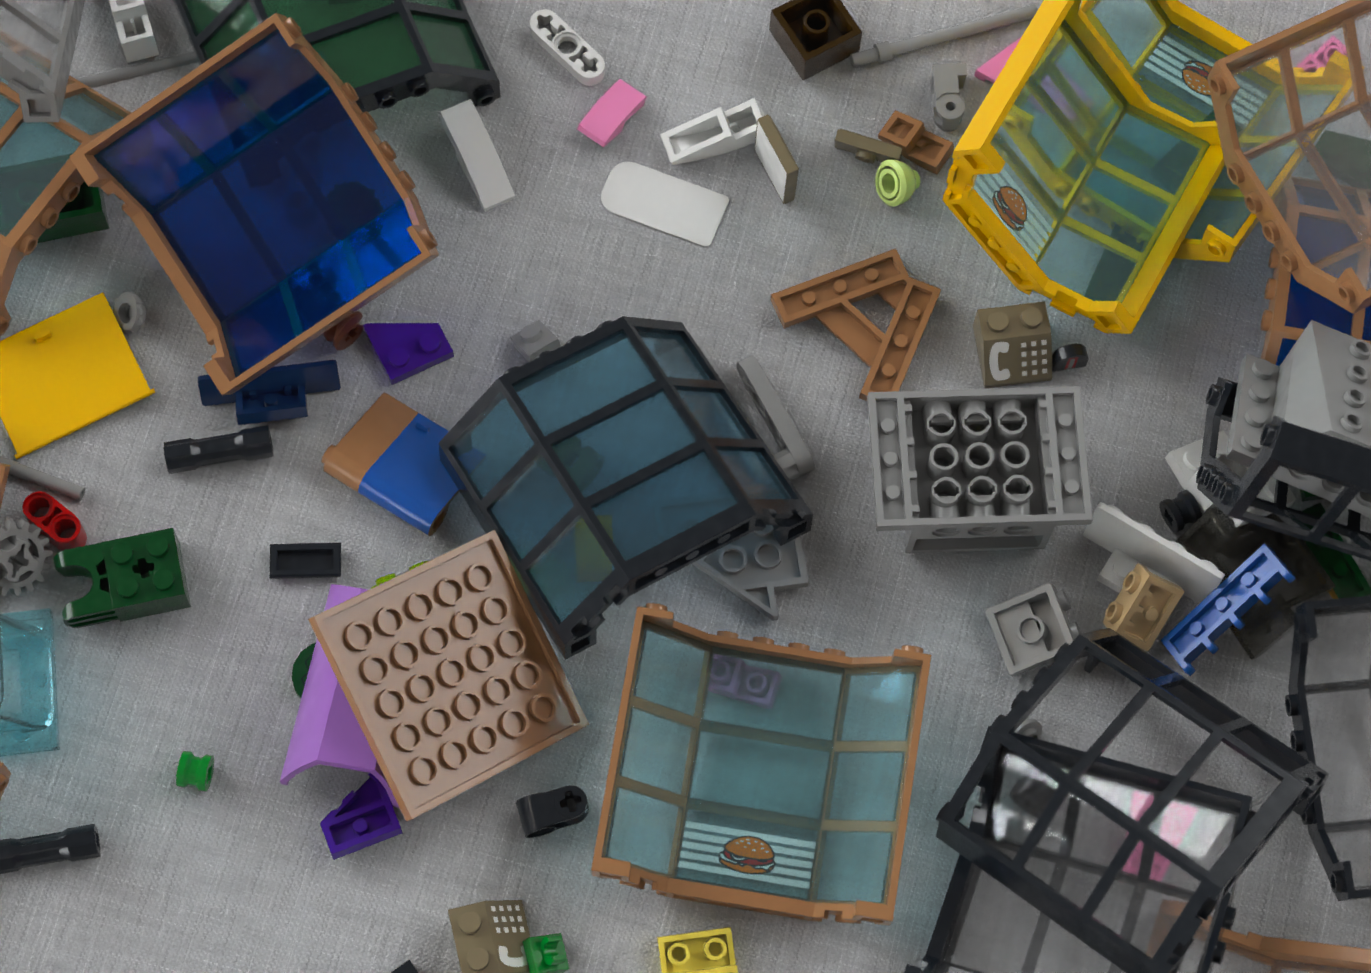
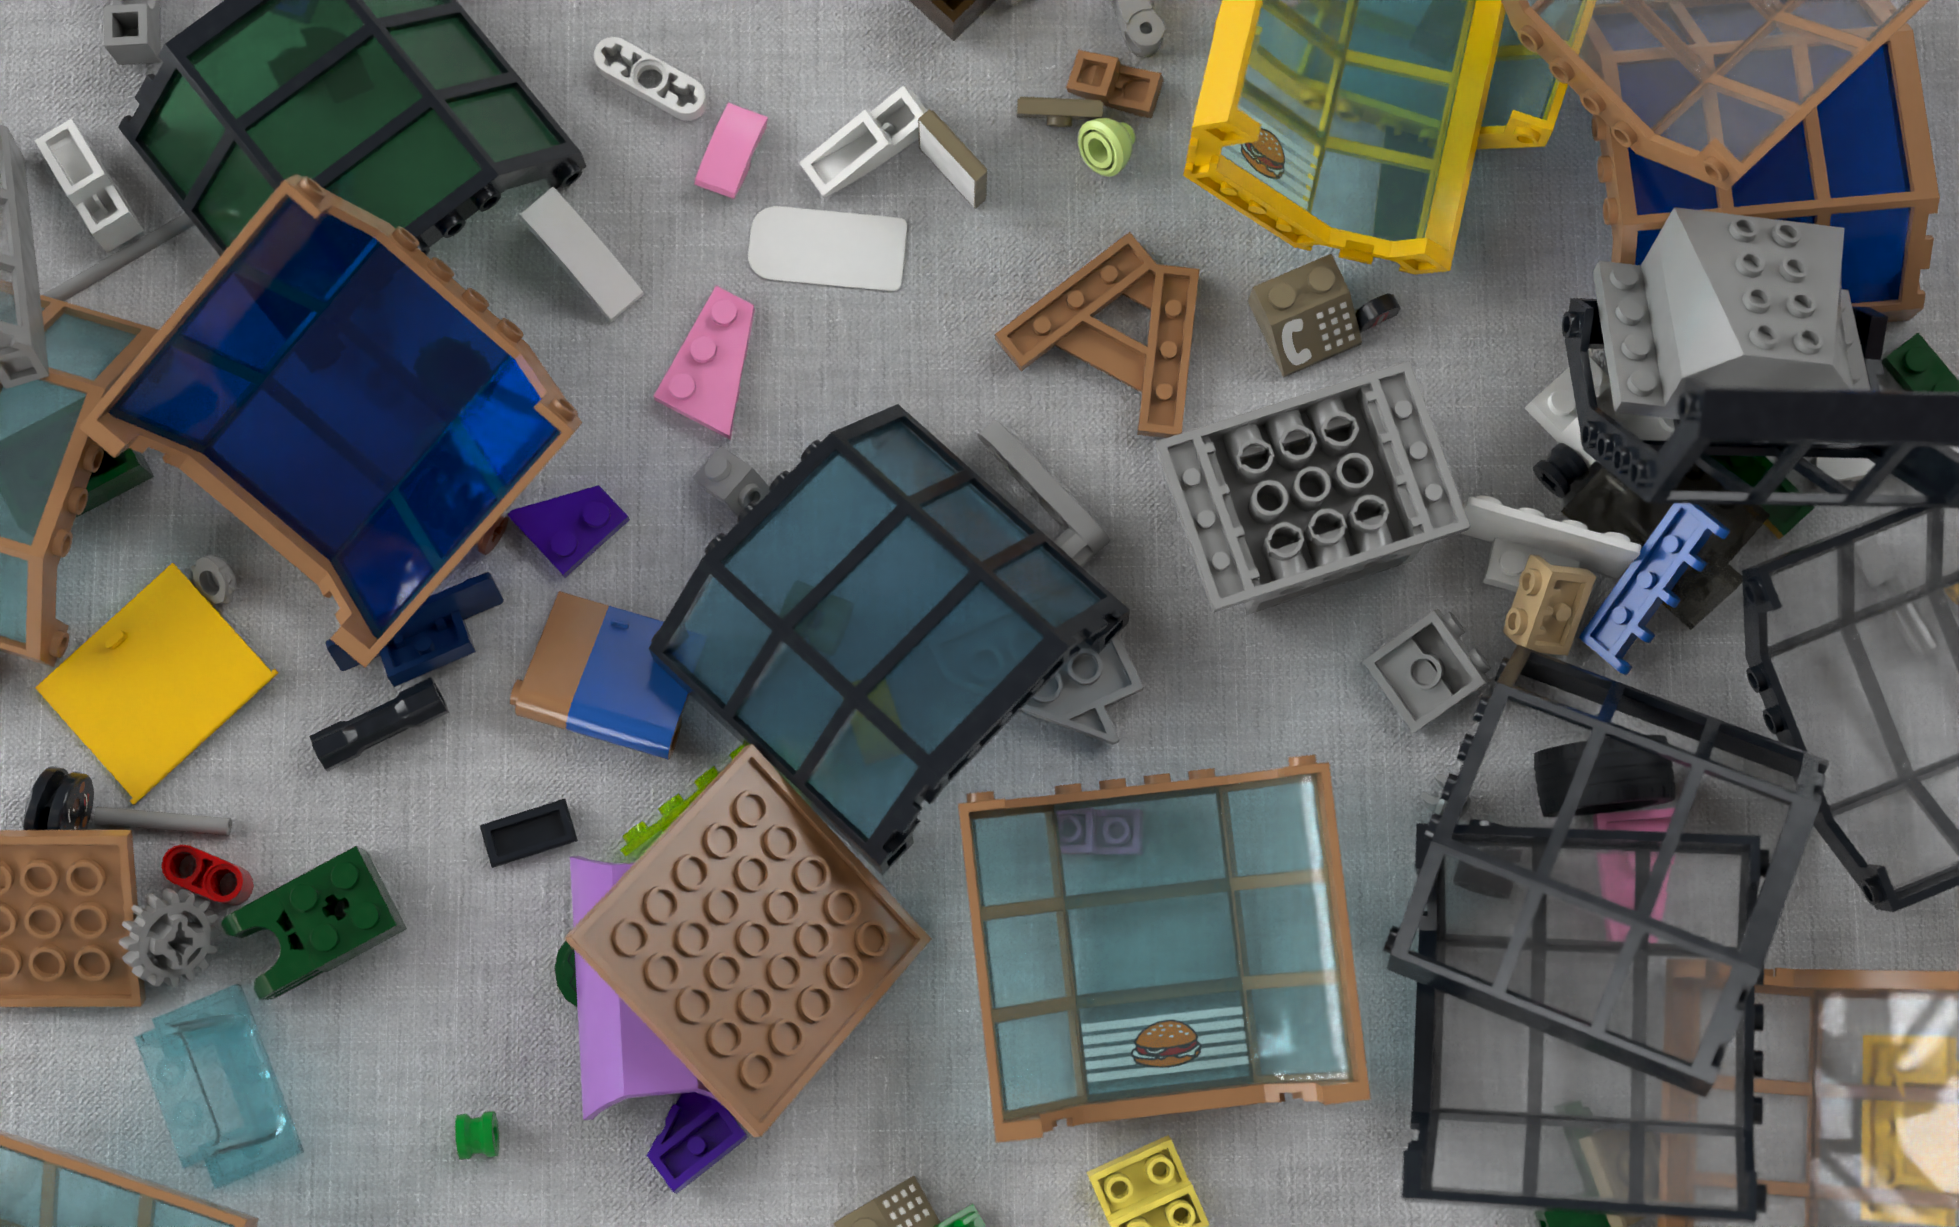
camera: 15 degrees left, 10 degrees up
(547, 811) = (912, 1063): black piece -> none
(548, 260) = (710, 364): none -> bright pink wing
(1153, 738) = (1618, 781): none -> black tyre

